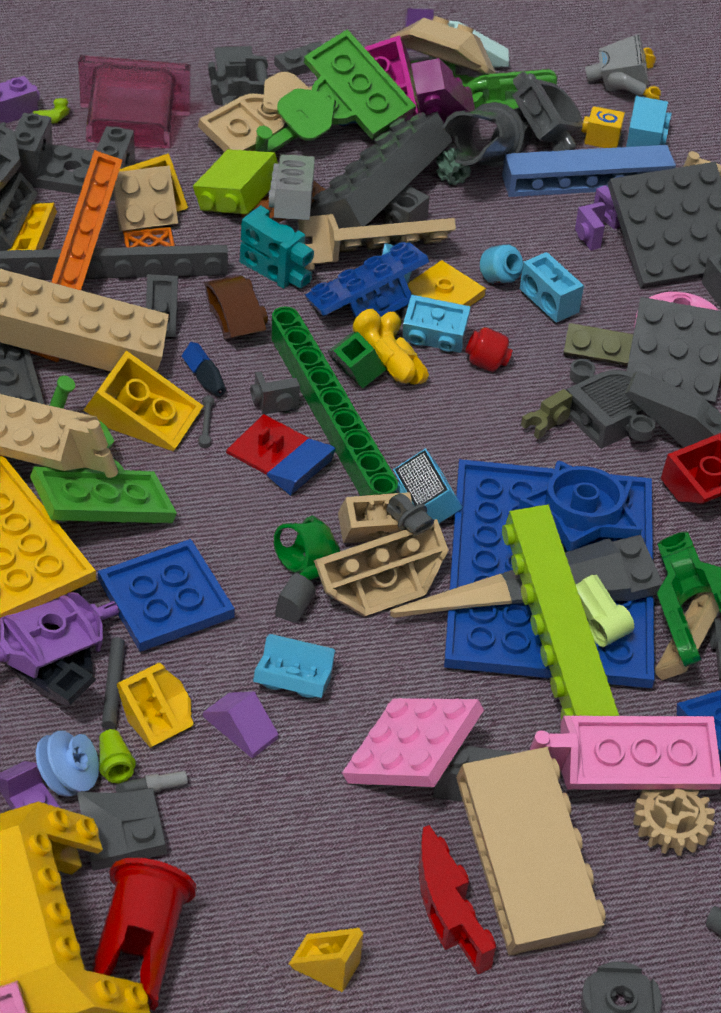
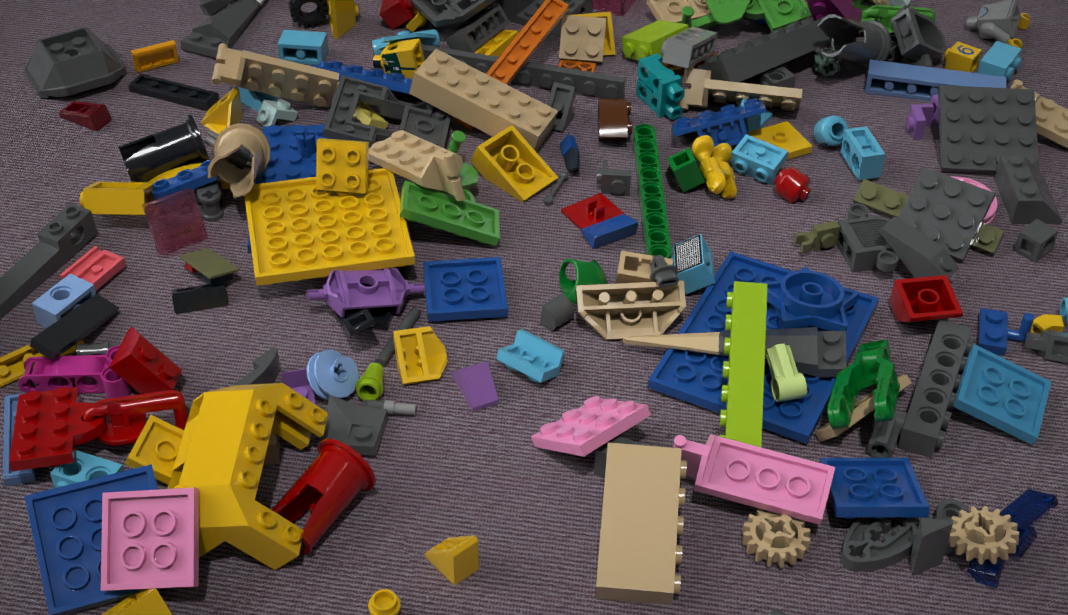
camera: 25 degrees right, 5 degrees down
(444, 897) = (564, 544): red slope -> none

